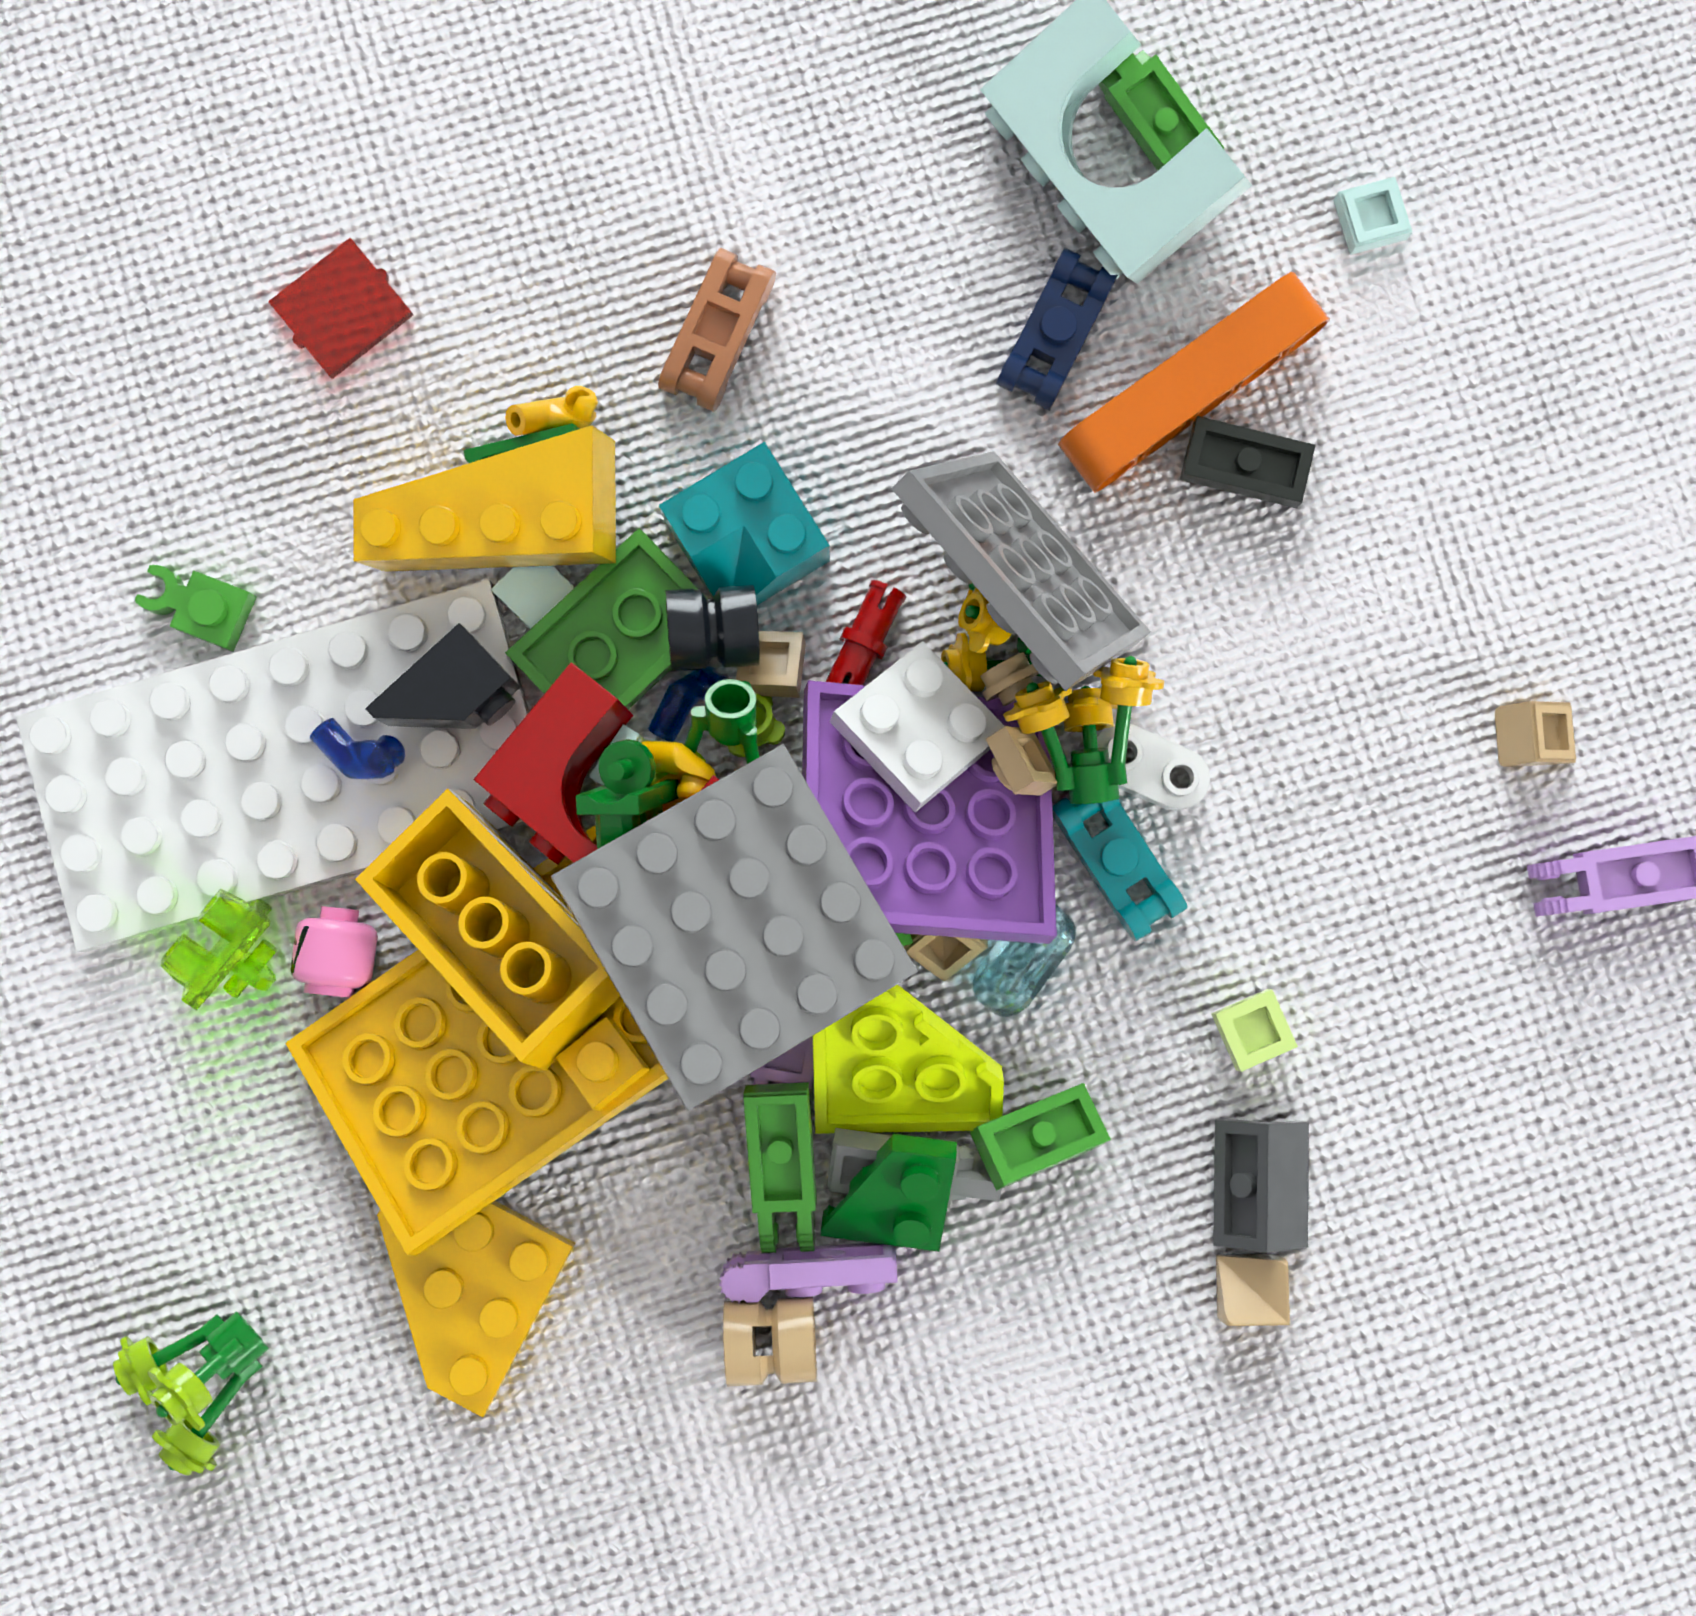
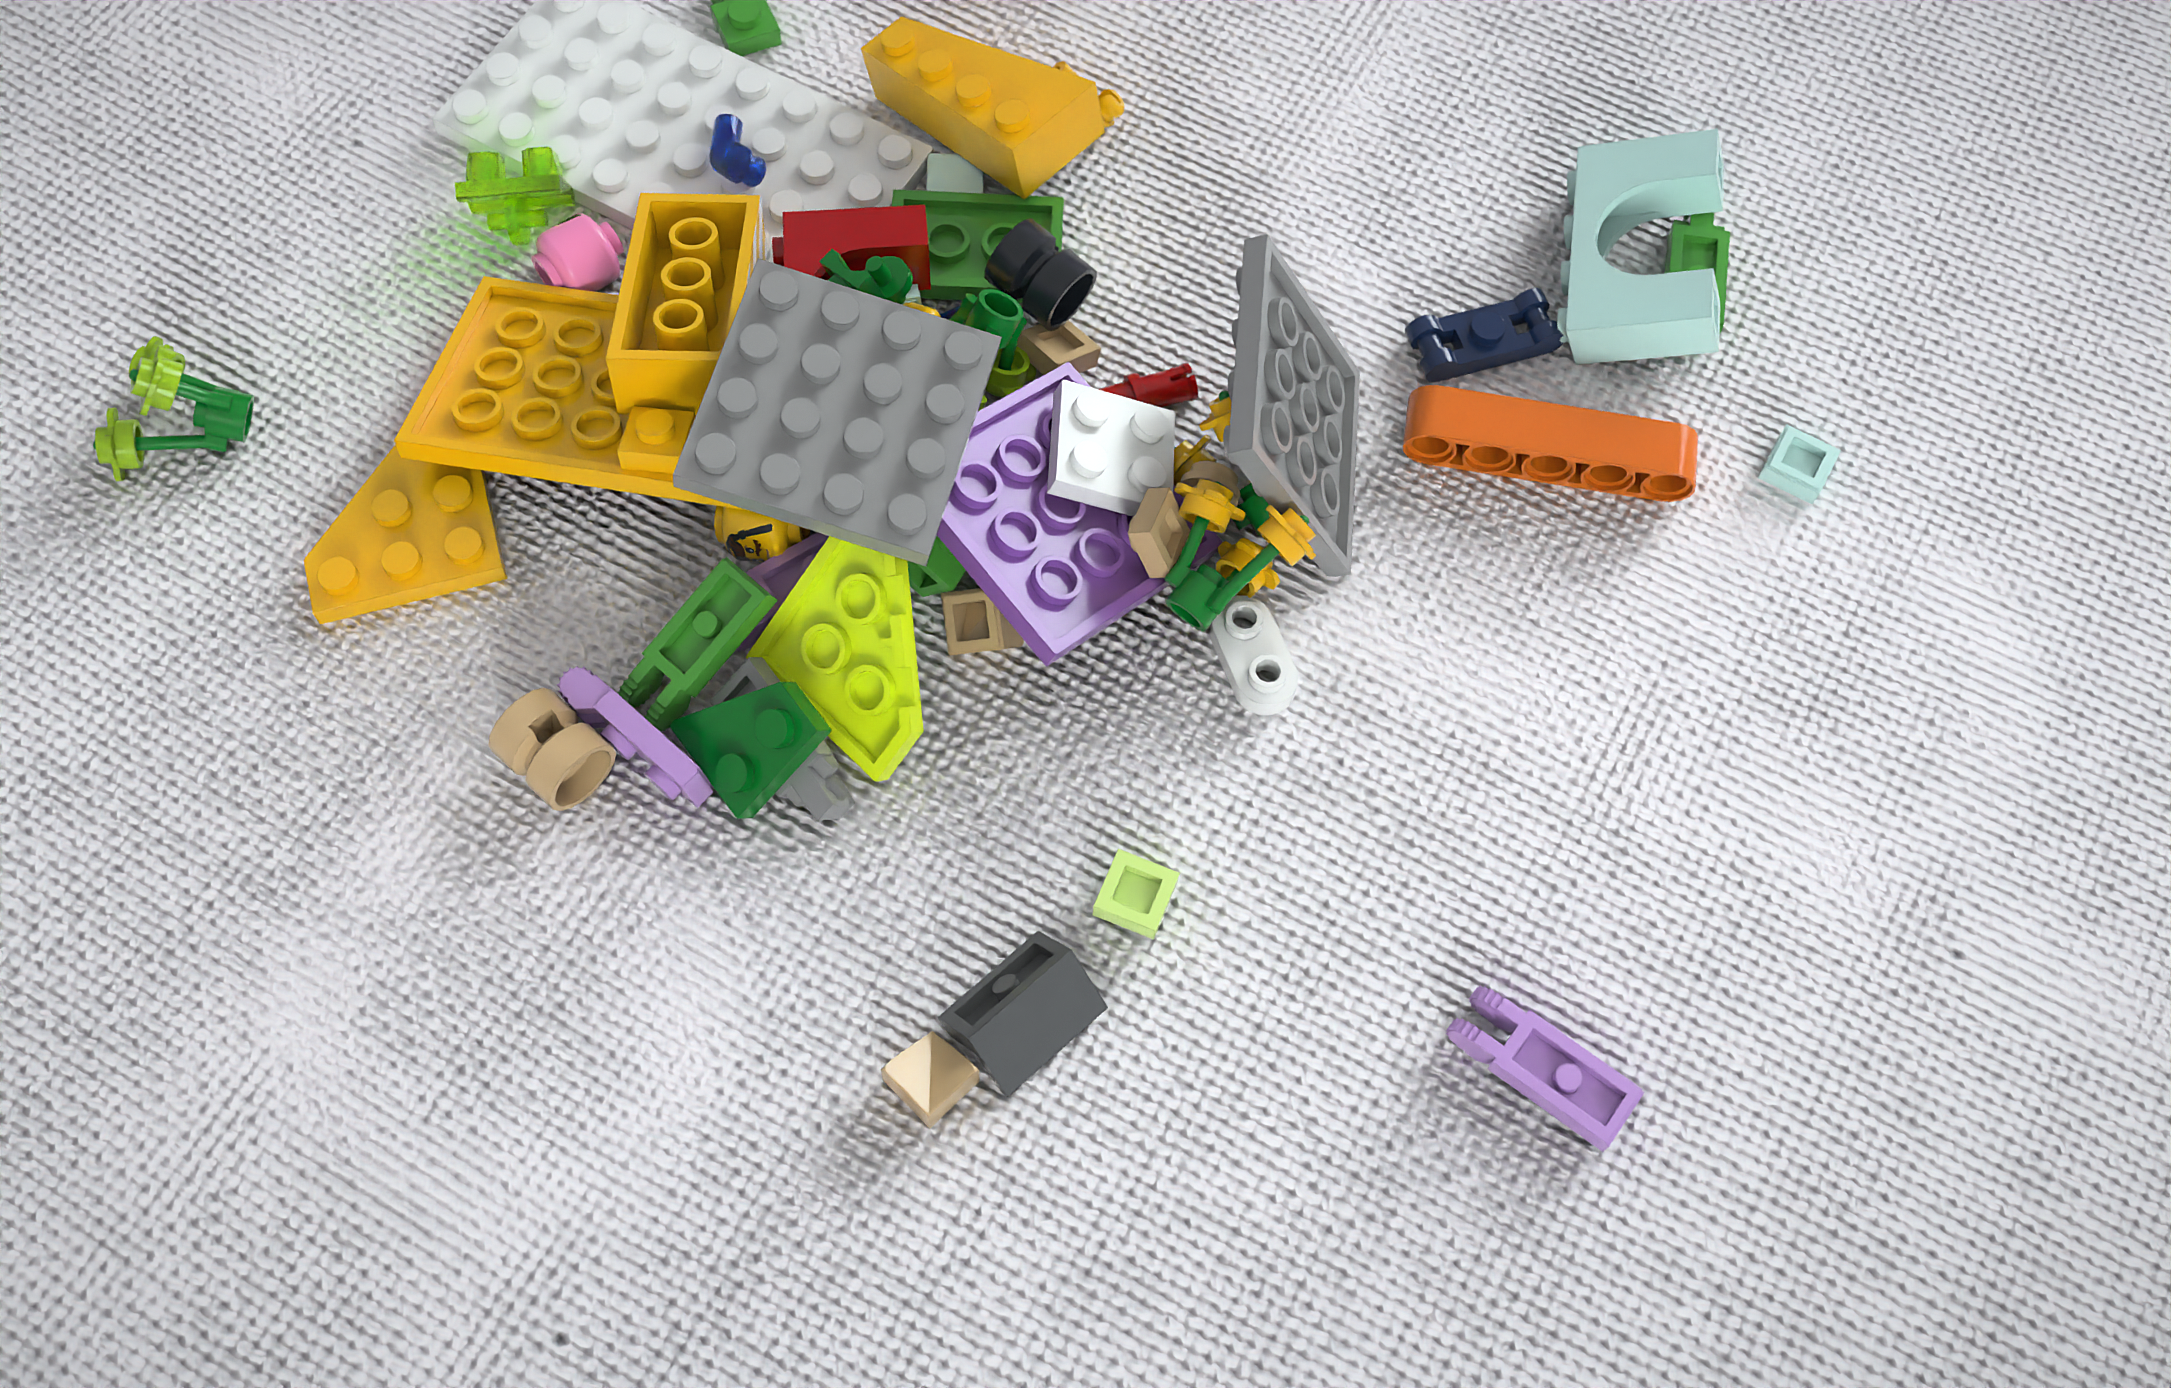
camera: 45 degrees right, 20 degrees down
(448, 688) = (829, 160): black slope -> none
(716, 329) = (1246, 142): nougat plate -> none
(746, 527) = (1140, 255): teal slope -> none
(1018, 970) = (998, 686): clear light blue plate -> none
(1039, 1136) = (896, 803): bright green plate -> none
(1117, 861) = (1162, 691): teal plate -> none
(1247, 462) = (1538, 526): pearl dark grey plate -> none
(1535, 734) = (1581, 906): tan slope -> none

